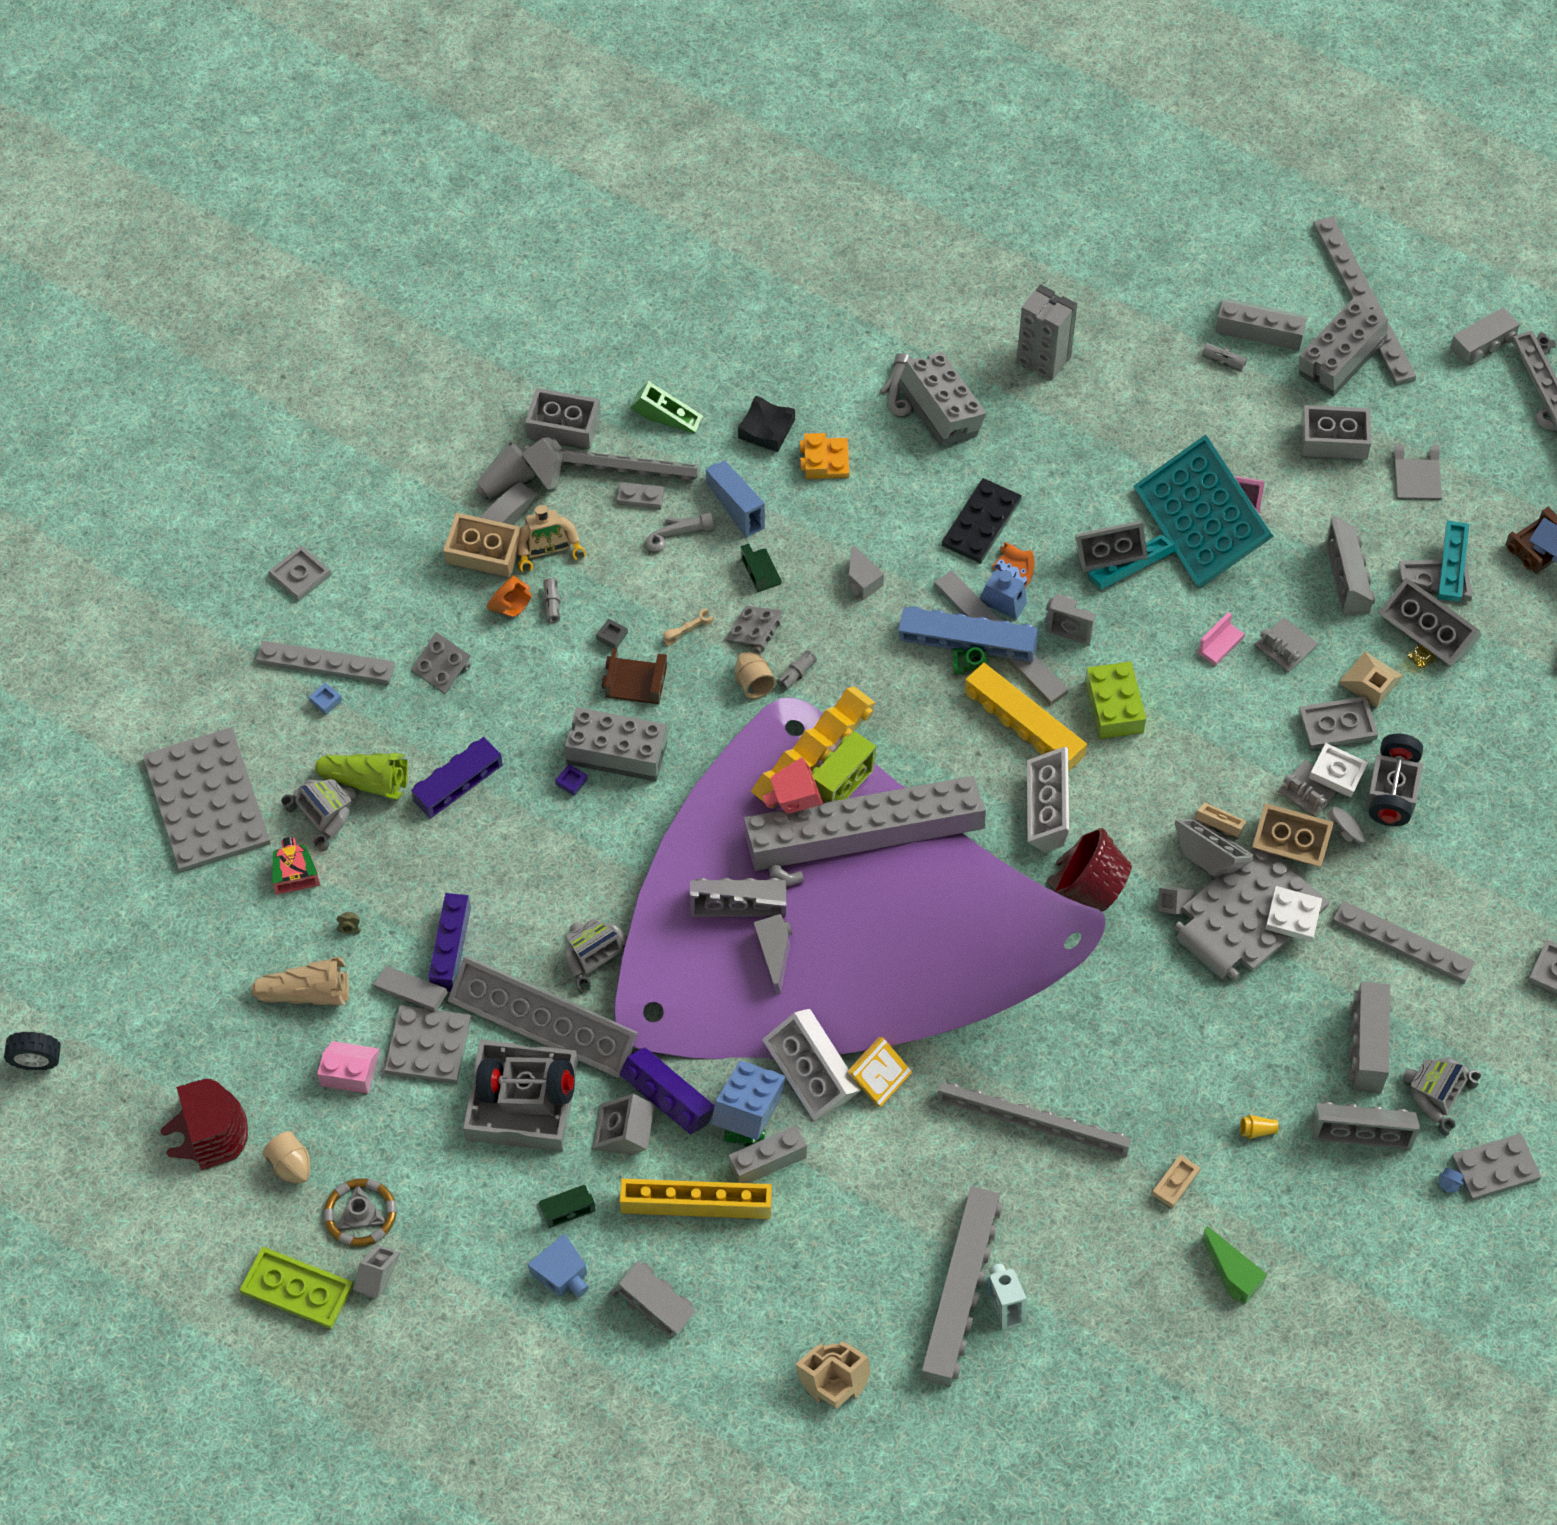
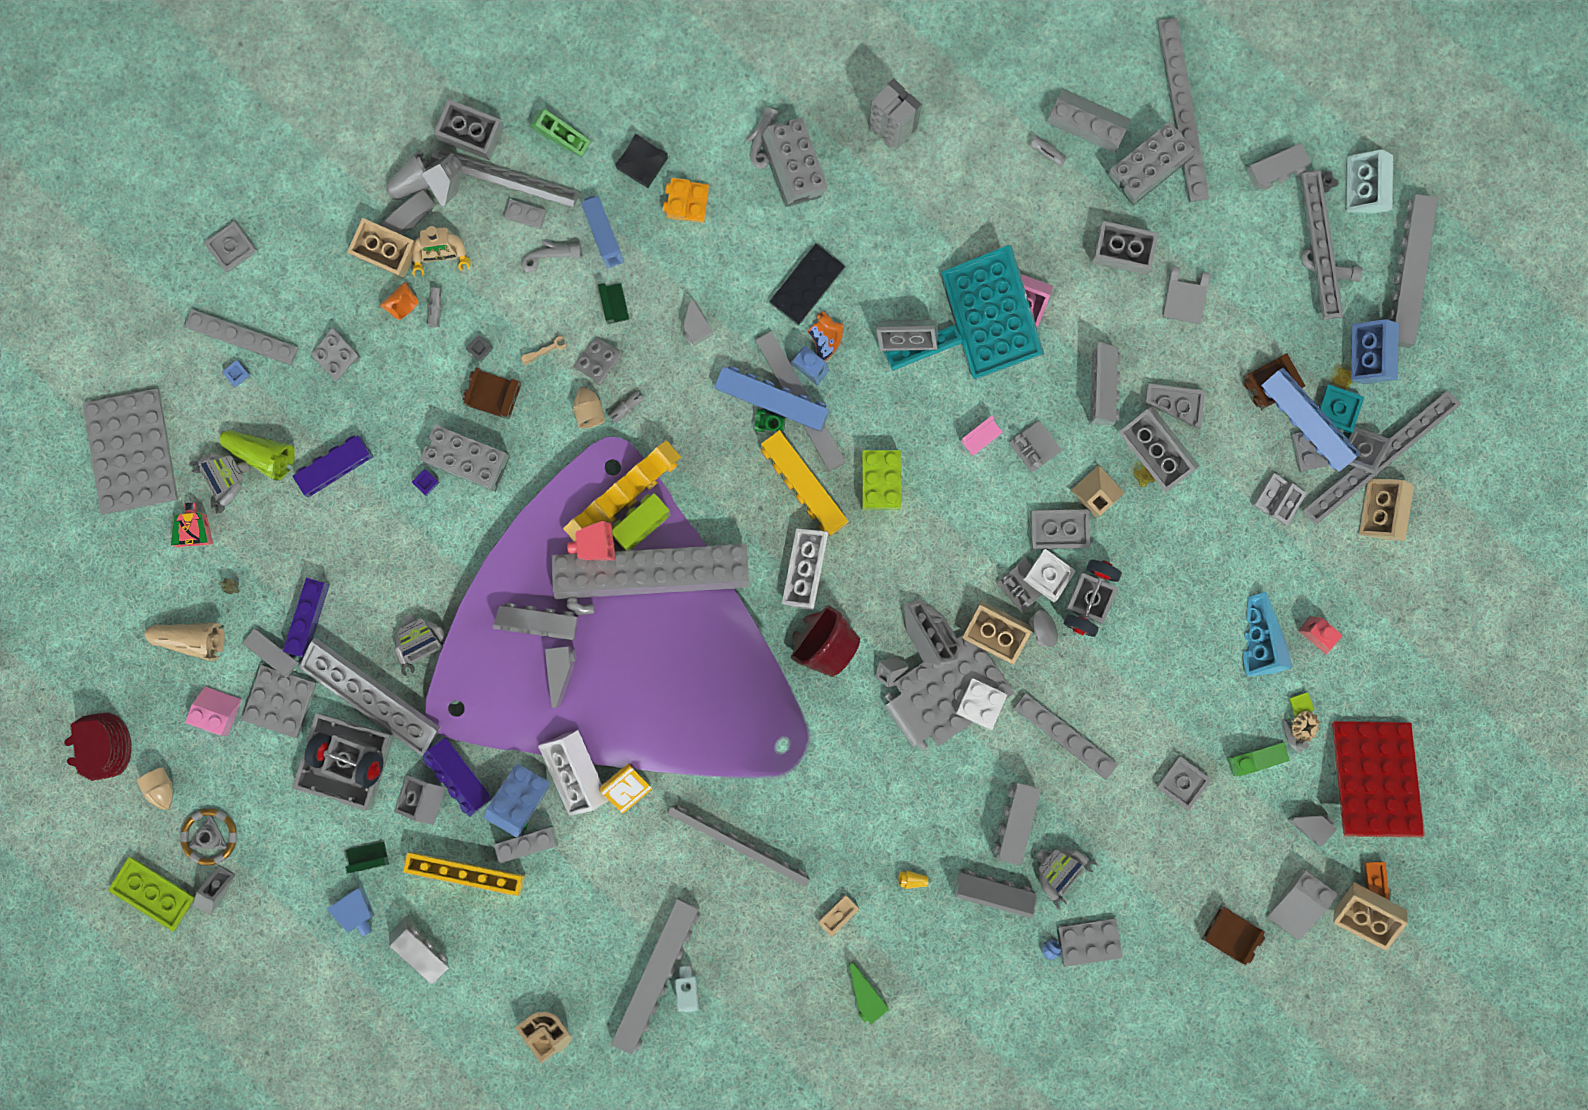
camera: 10 degrees right, 25 degrees up
(1068, 621) = (853, 394): light grey plate -> none
(1222, 820) = (943, 604): tan plate -> none
(1453, 561) = (1192, 394): teal plate -> none

